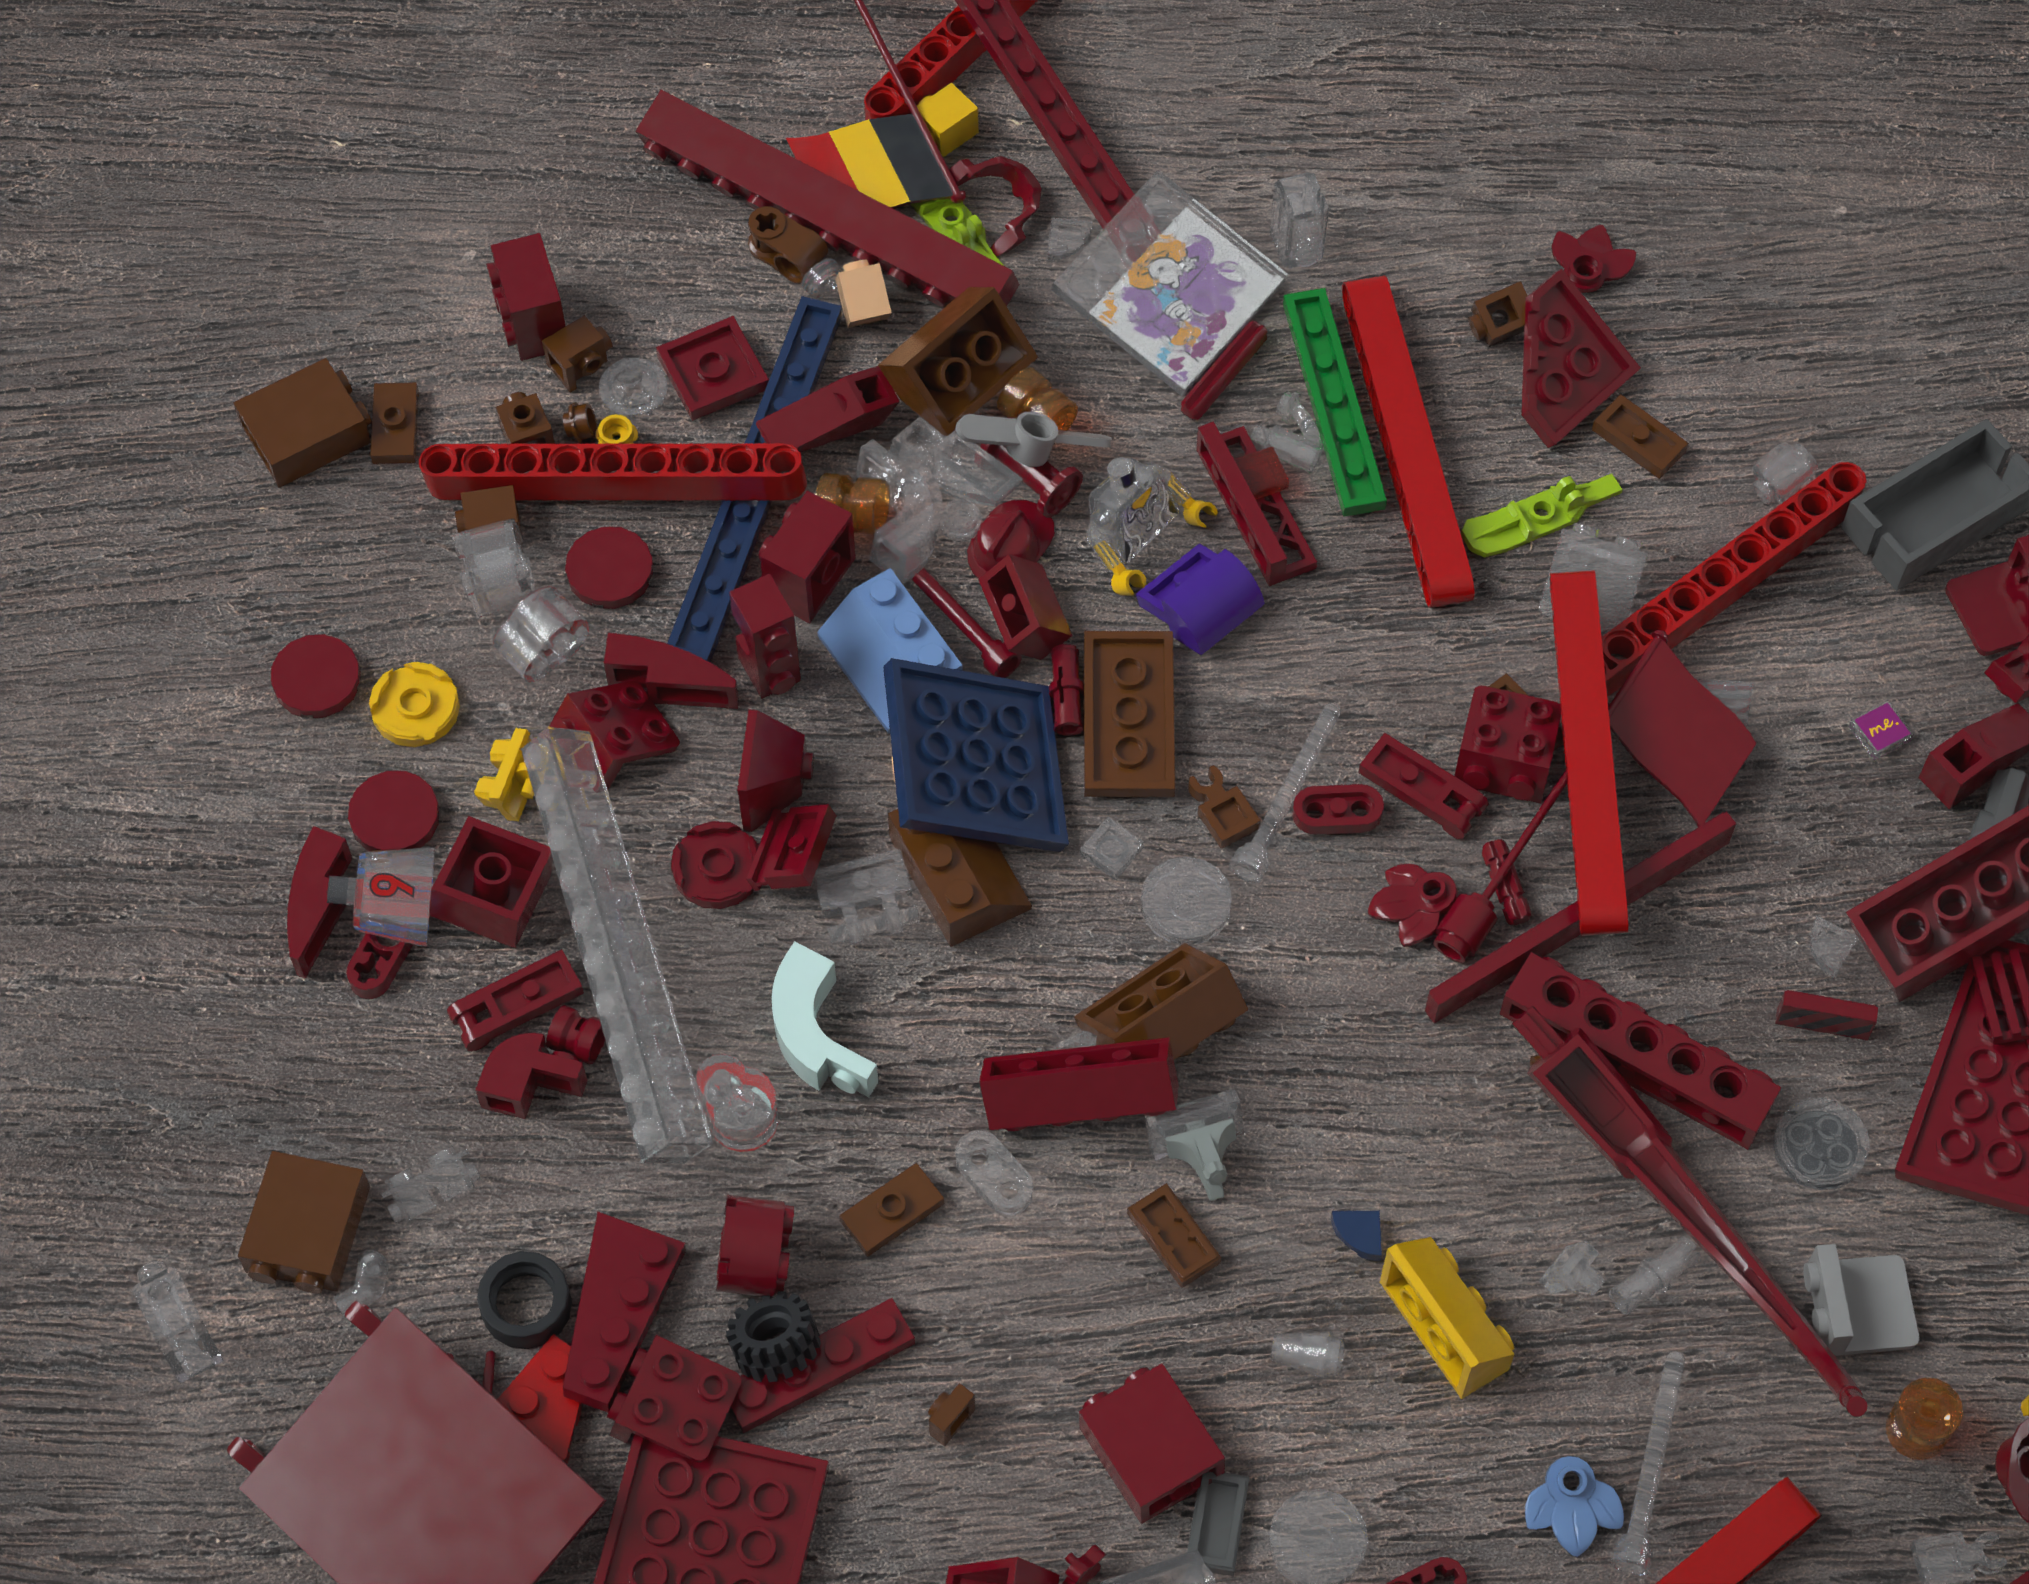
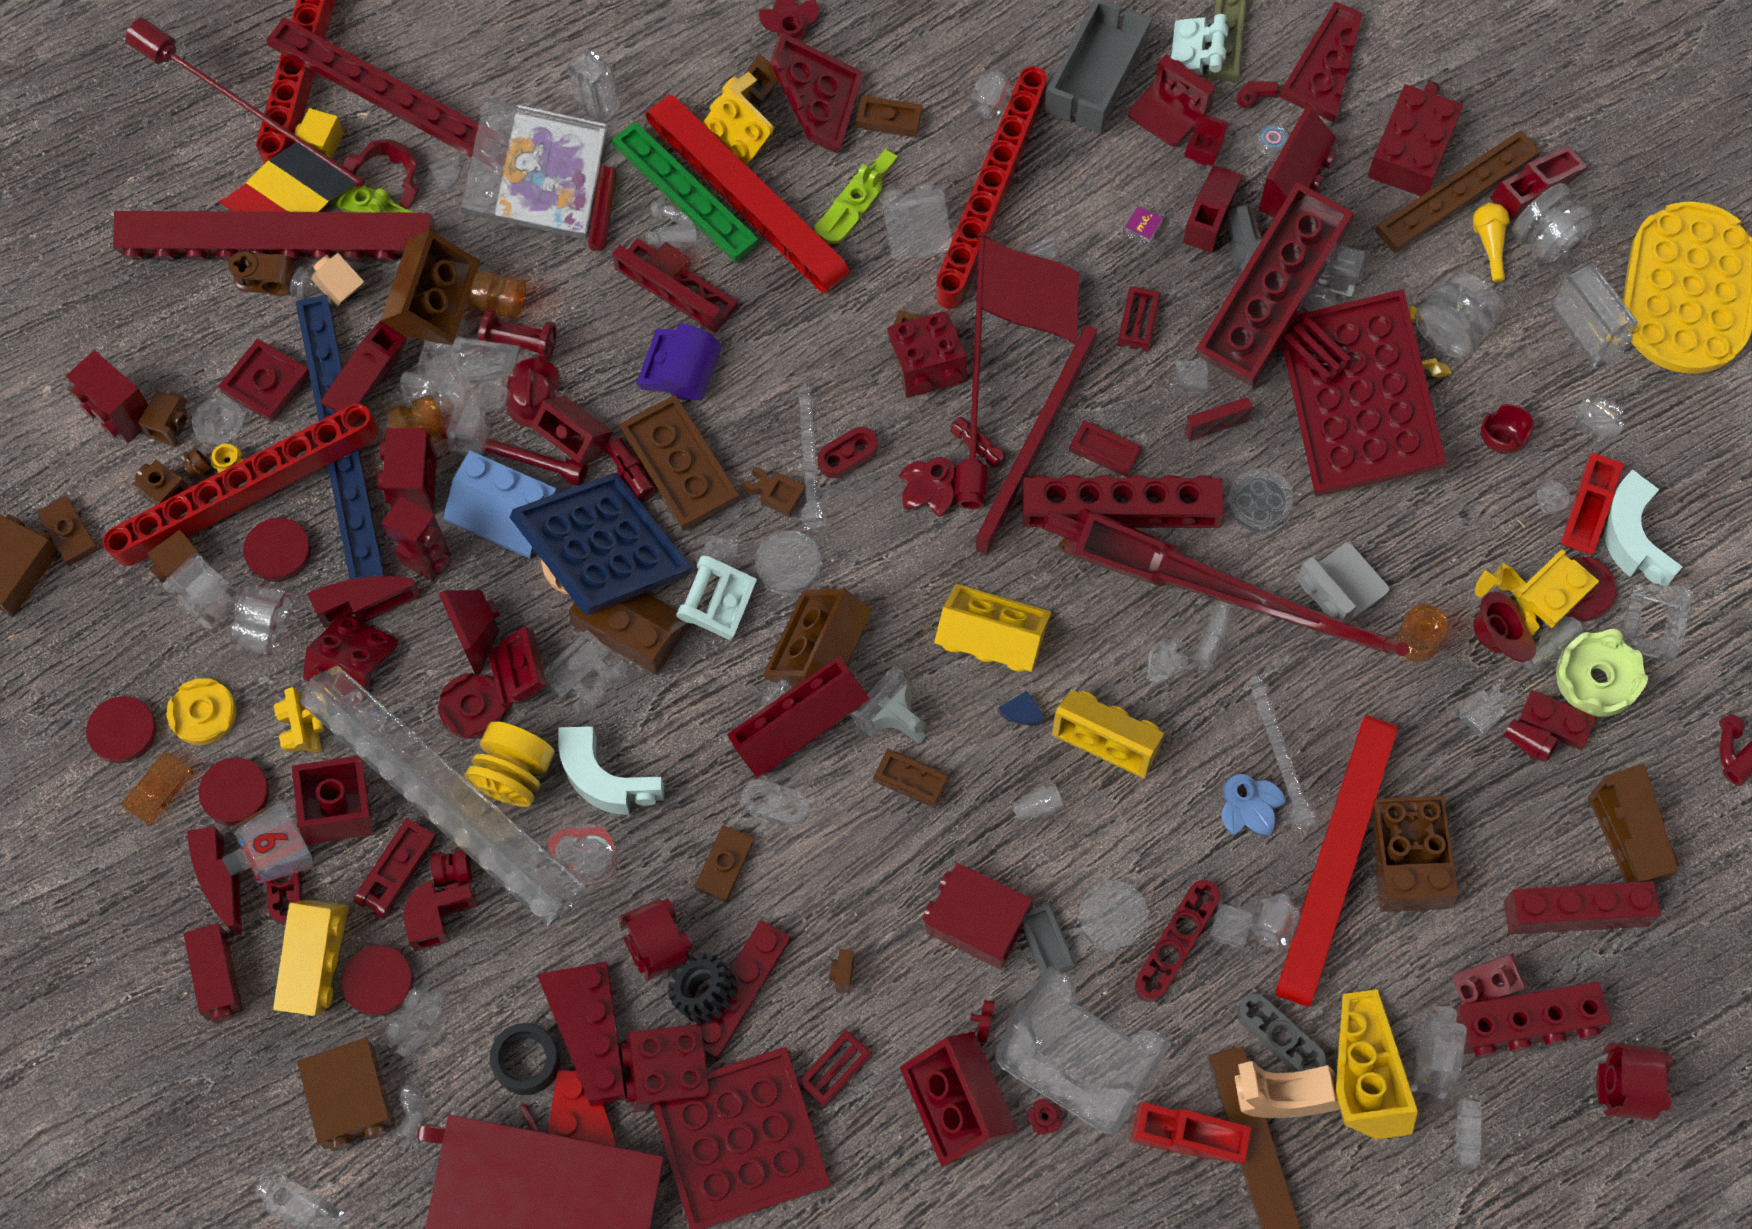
camera: 30 degrees left, 5 degrees up
(245, 1002) = (213, 973): none -> dark red brick
(313, 763) = (156, 788): none -> clear orange plate
(360, 1042) = (309, 956): none -> yellow wedge
(417, 1115) = (377, 980): none -> dark red tile
(720, 947) = (509, 764): none -> yellow wheel
(877, 1540) = (814, 1091): none -> dark red tile
(1026, 438) = (506, 318): light grey piece -> none
(1084, 905) = (727, 600): none -> light aqua plate
(1131, 511) = (602, 329): clear torso -> none
(1383, 1112) = (992, 628): none -> yellow slope
(1423, 785) = (890, 408): dark red plate -> none
(1443, 348) = (737, 120): none -> yellow bracket
(1588, 754) = (985, 333): red beam -> none
(1662, 975) = (1105, 448): none -> dark red tile
(1781, 865) = (1134, 341): none -> dark red tile

